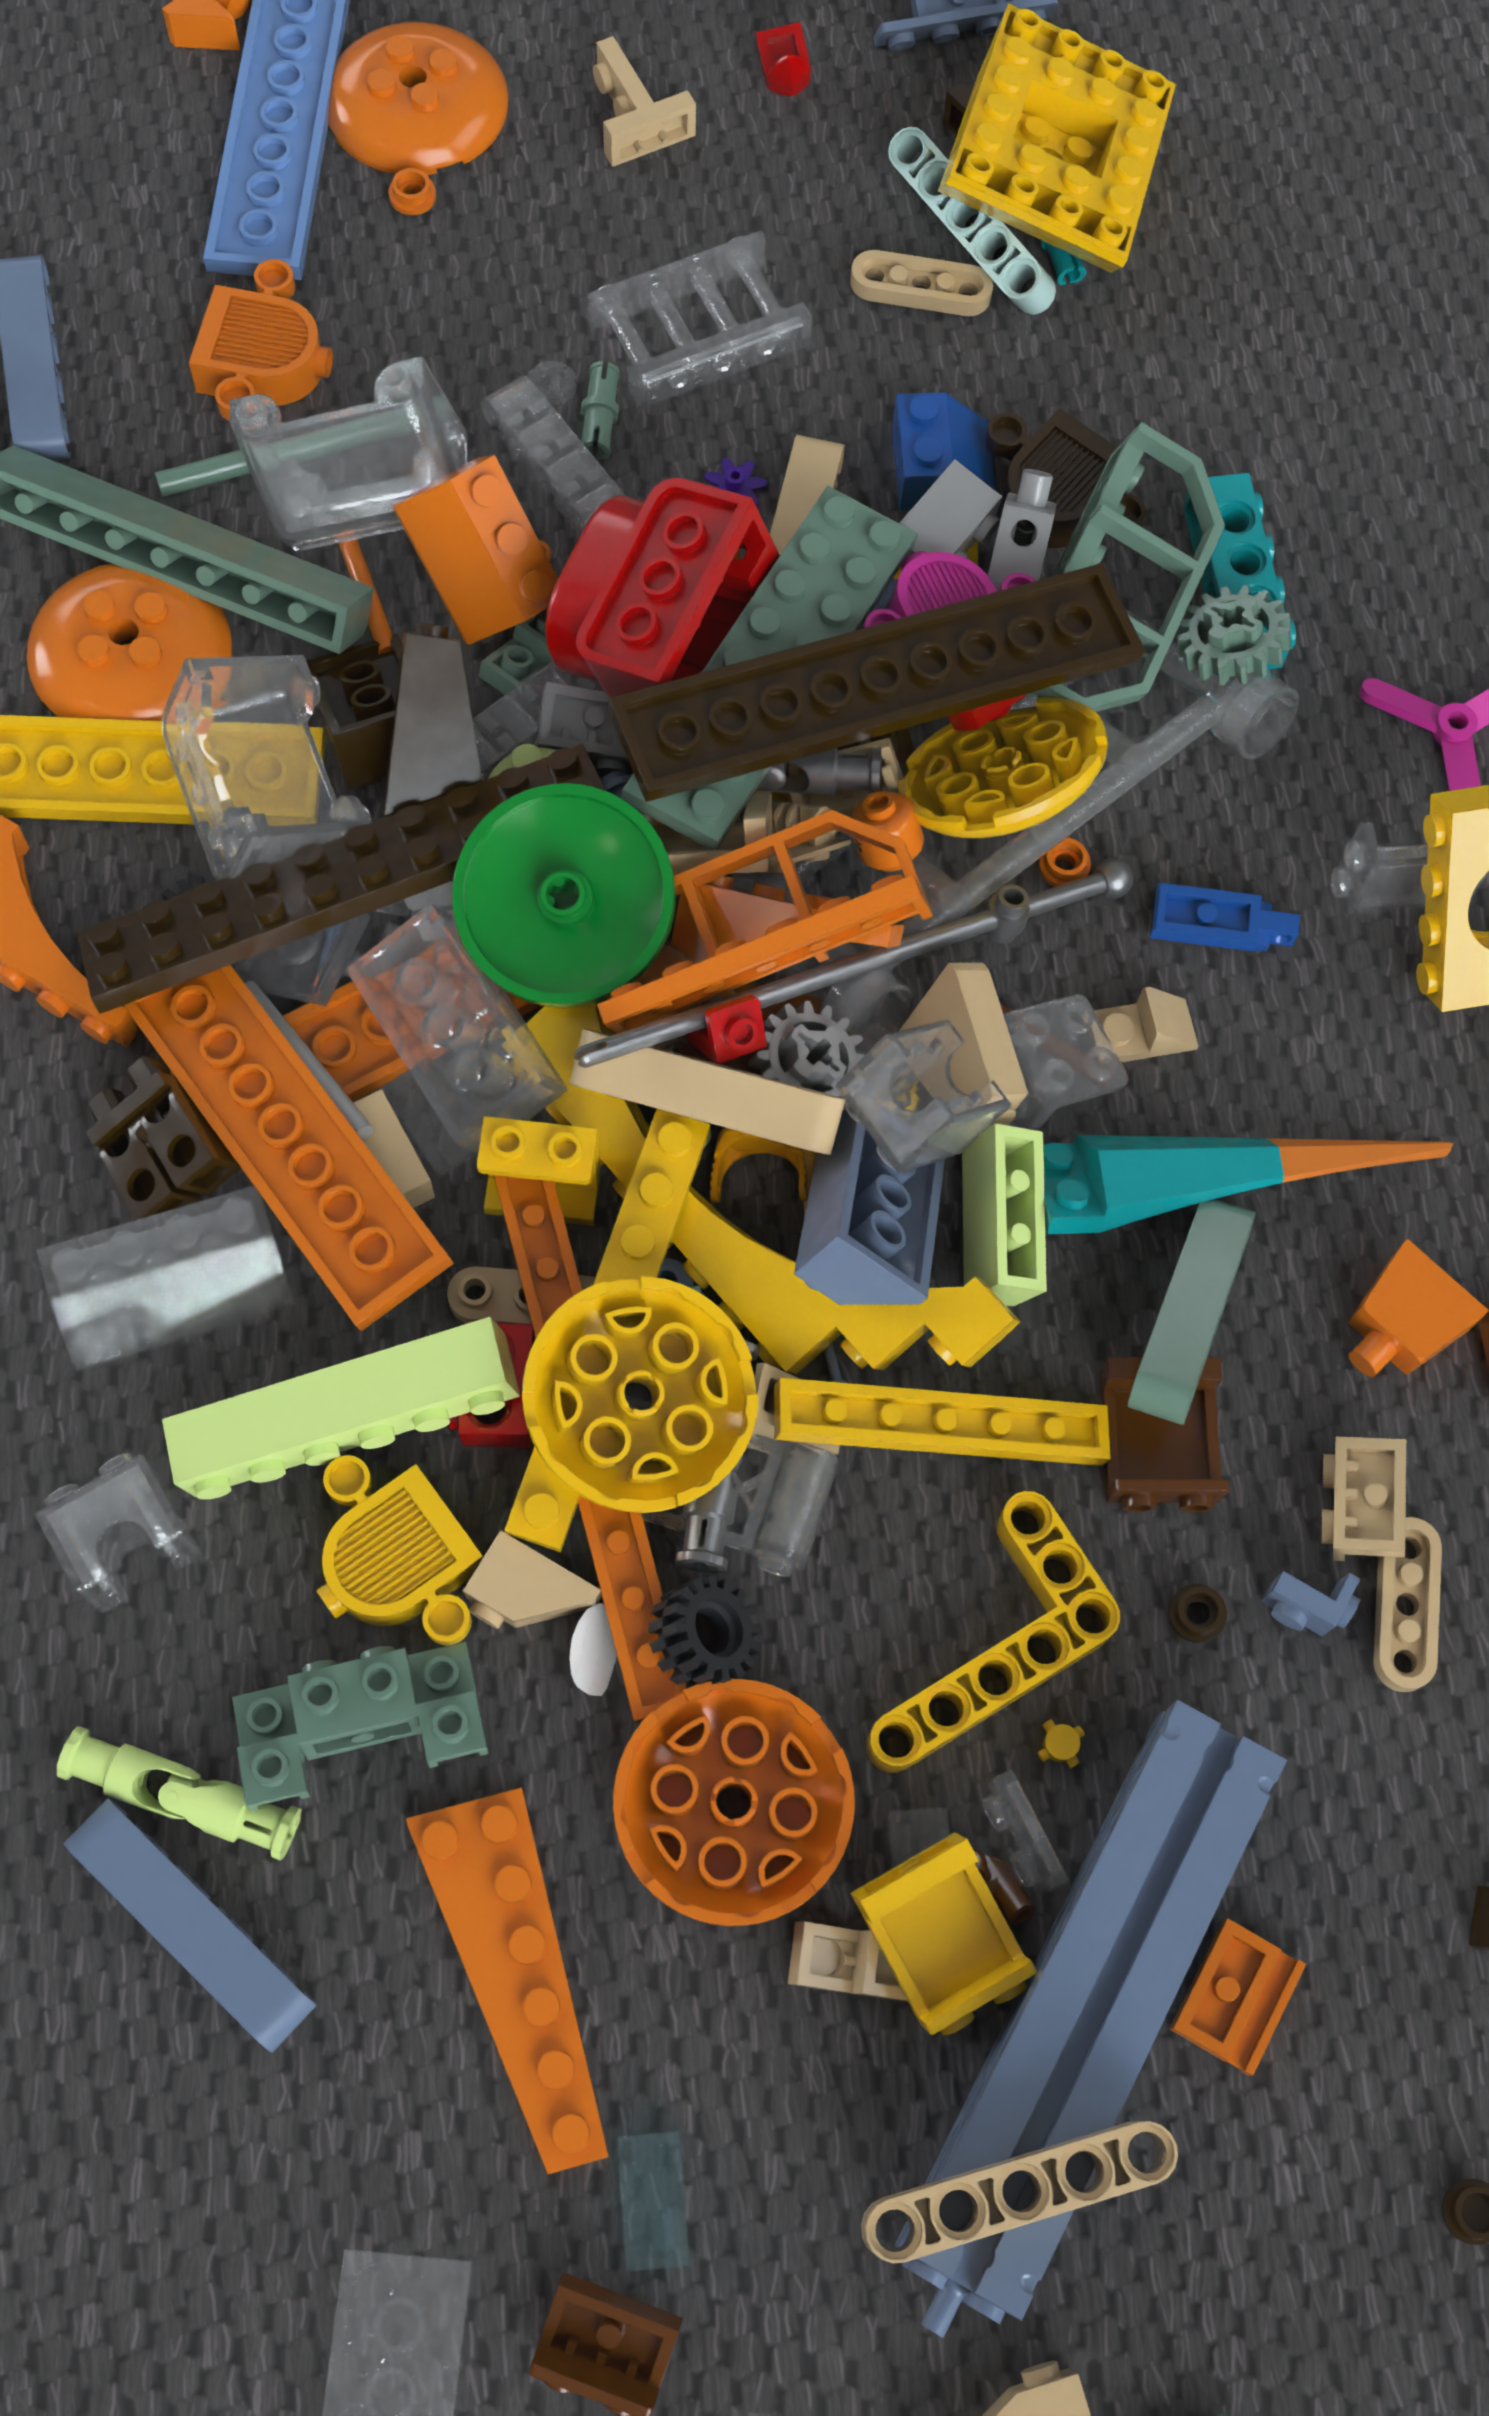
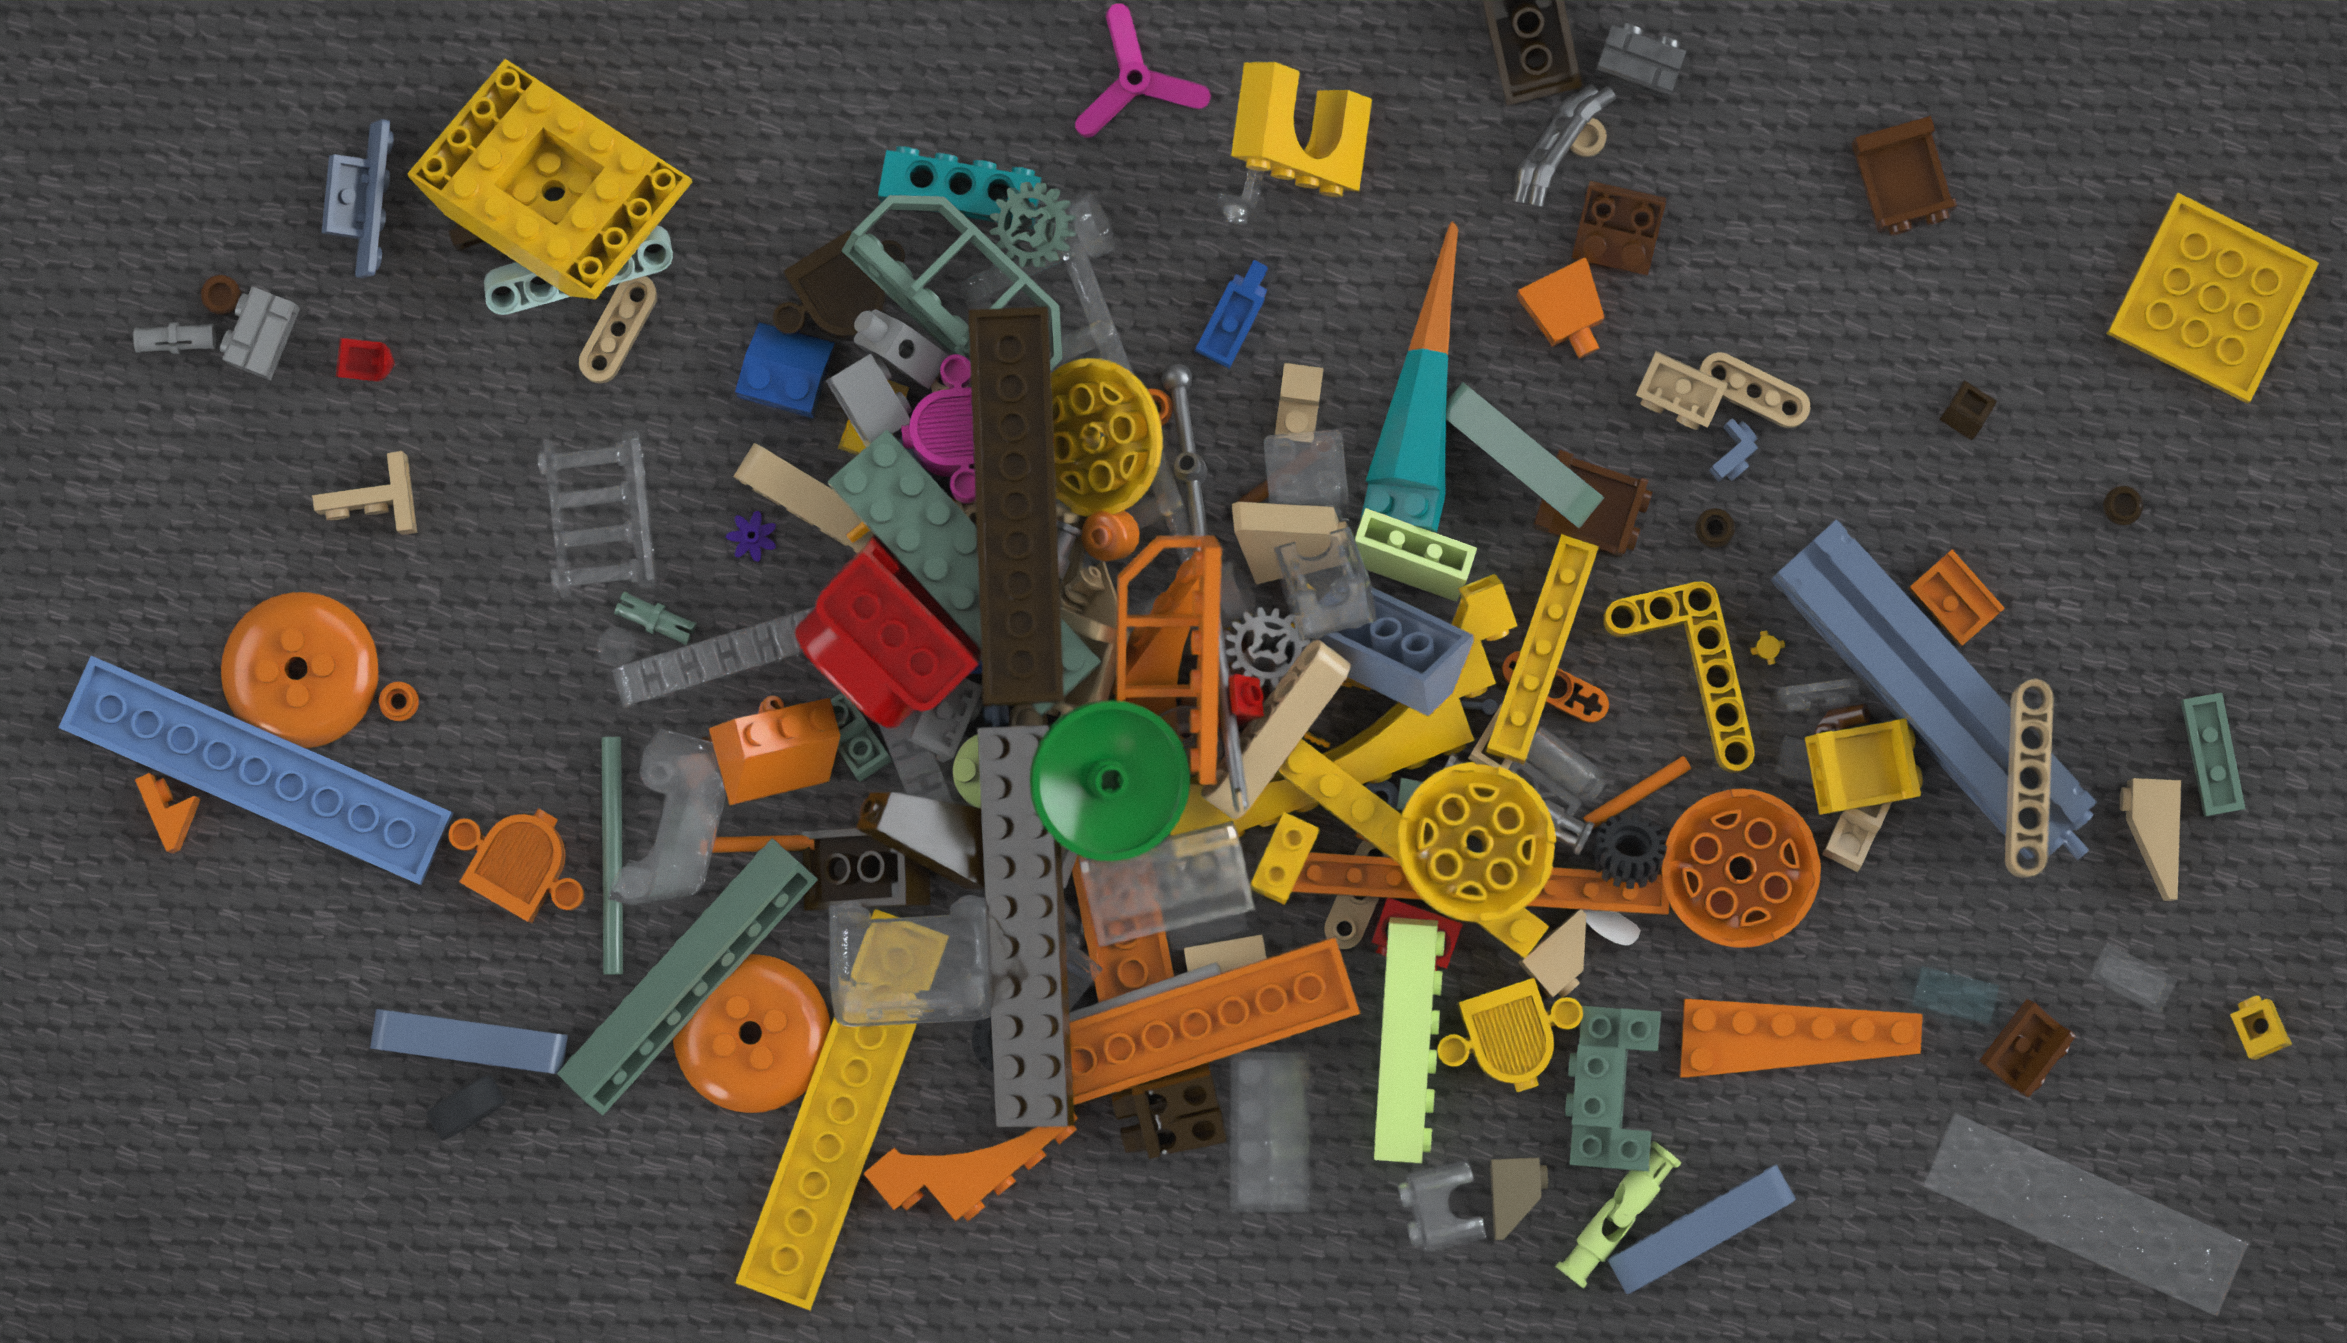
camera: 65 degrees left, 15 degrees up
(173, 1631) = (1514, 1191): none -> dark tan slope
(795, 1628) = (1638, 792): none -> orange bar
(877, 1505) = (1577, 708): none -> orange beam

